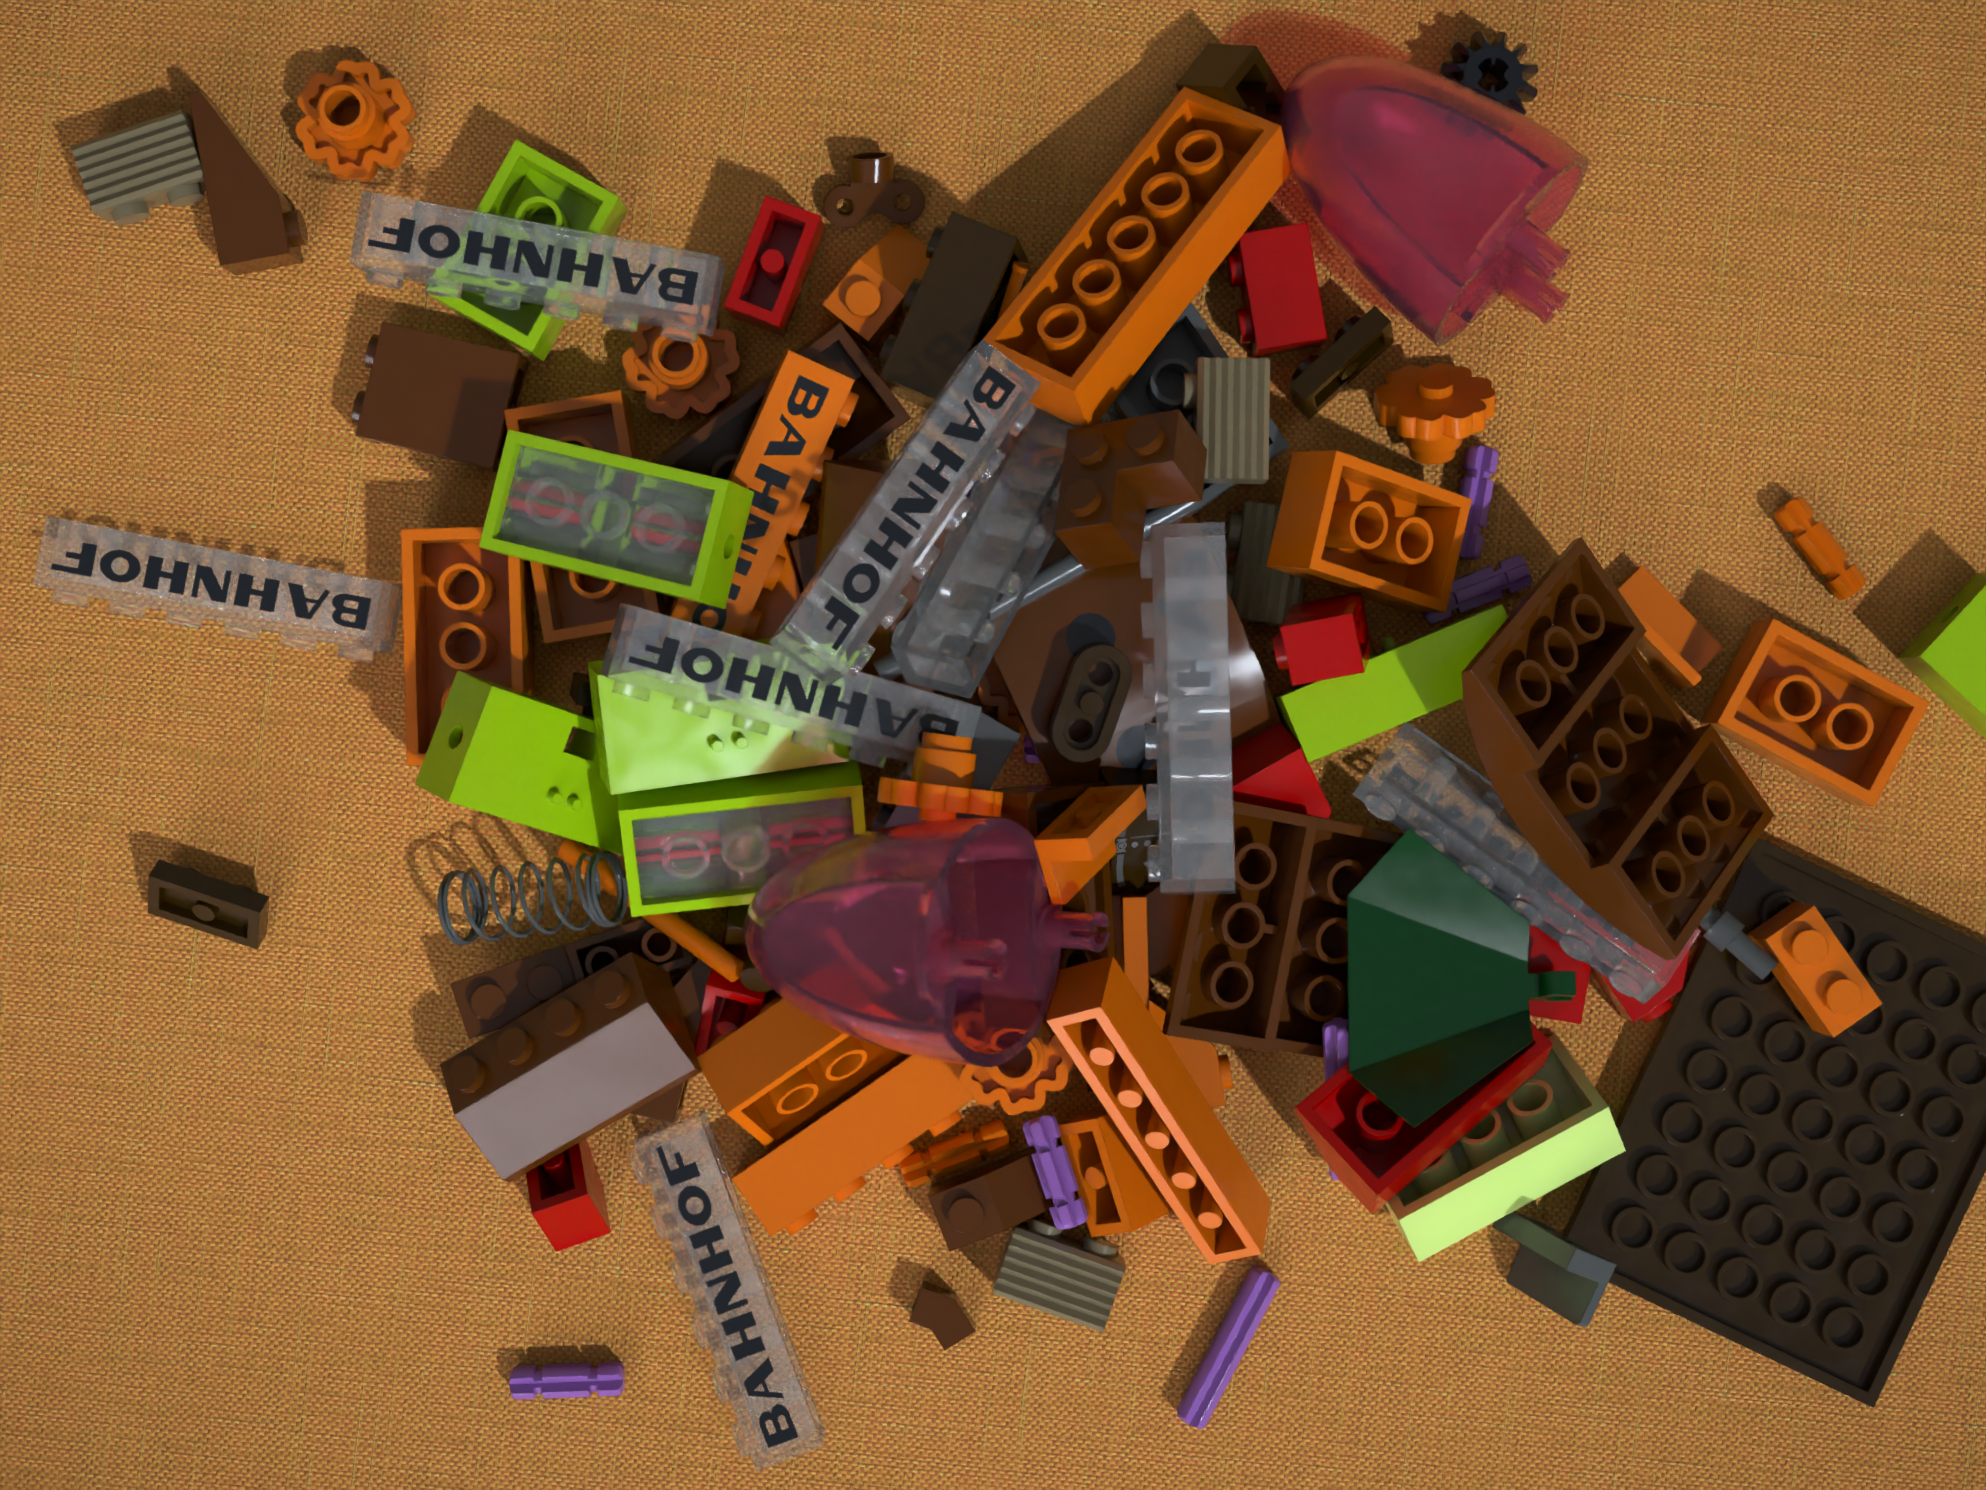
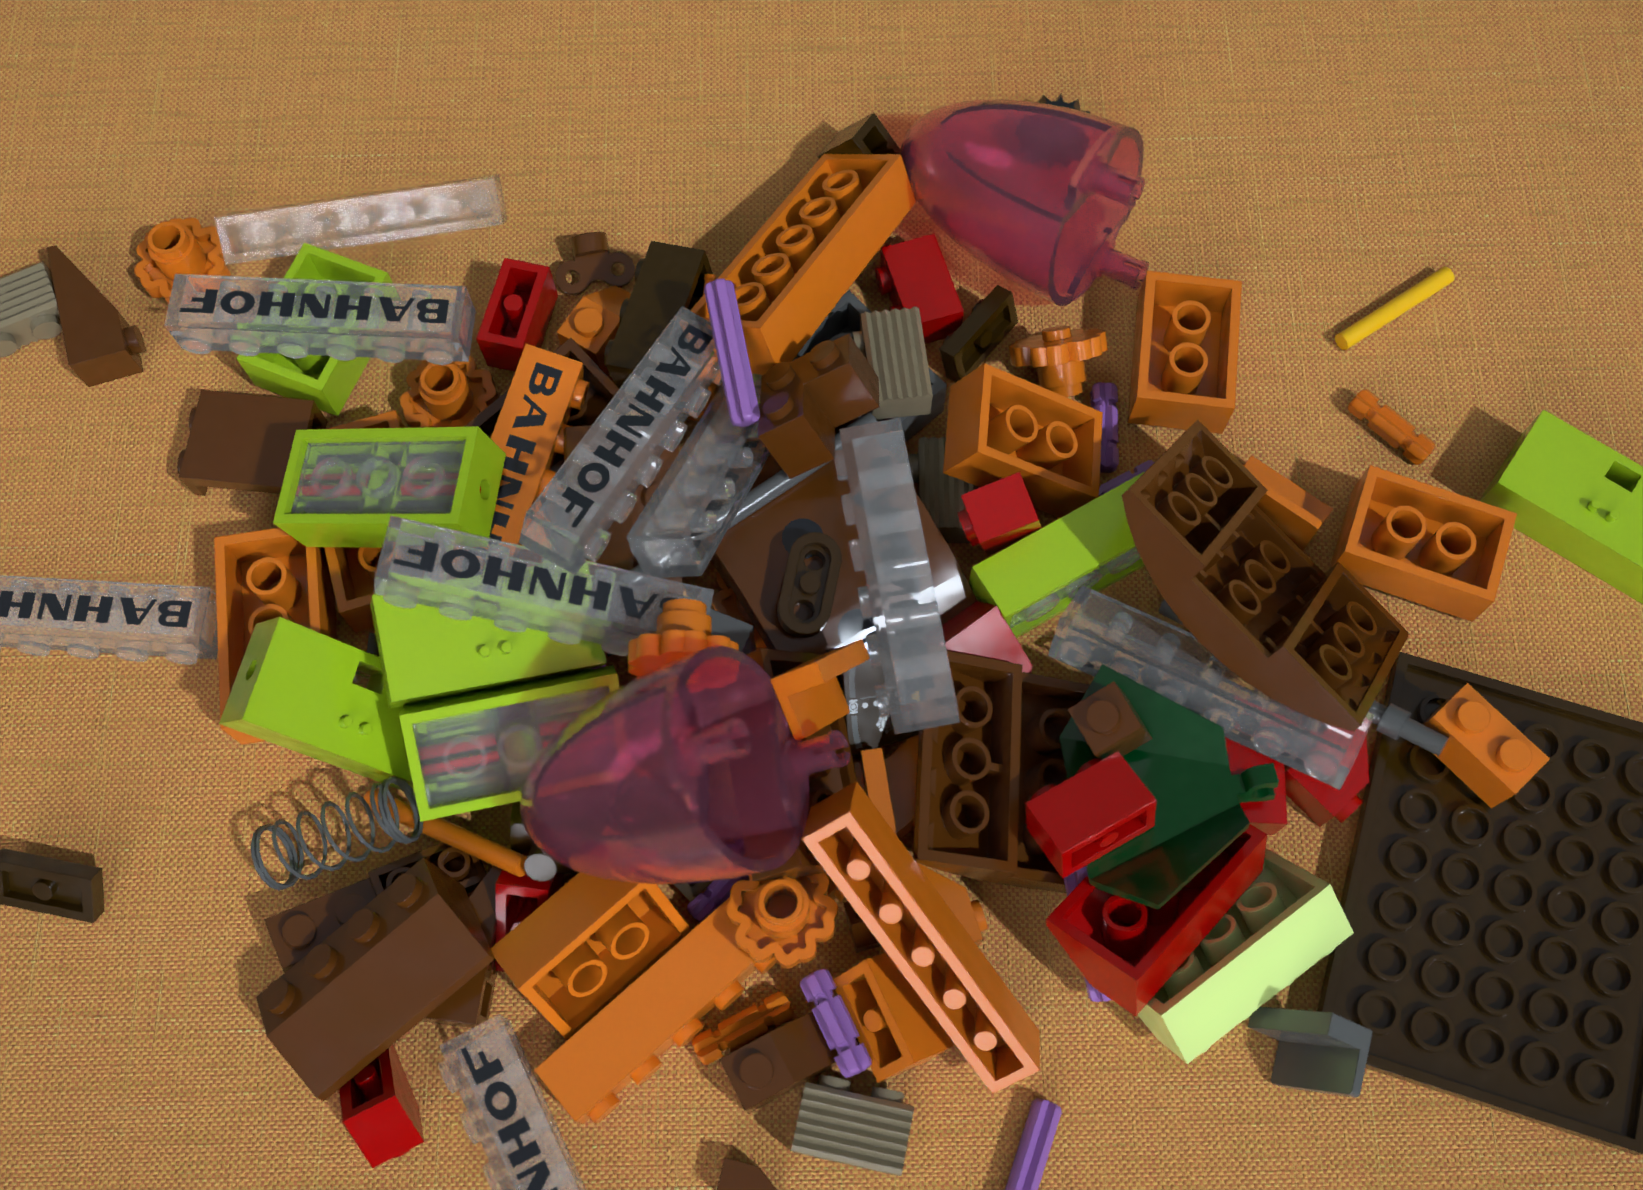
camera: 10 degrees left, 20 degrees down
(587, 99) = (362, 219): none -> clear brick
(1036, 414) = (732, 353): none -> medium lavender axle
(1362, 1003) = (1090, 813): none -> red brick
(1403, 906) = (1109, 722): none -> reddish brown brick
(1589, 425) = (1185, 351): none -> orange brick
(1865, 386) = (1394, 308): none -> yellow bar

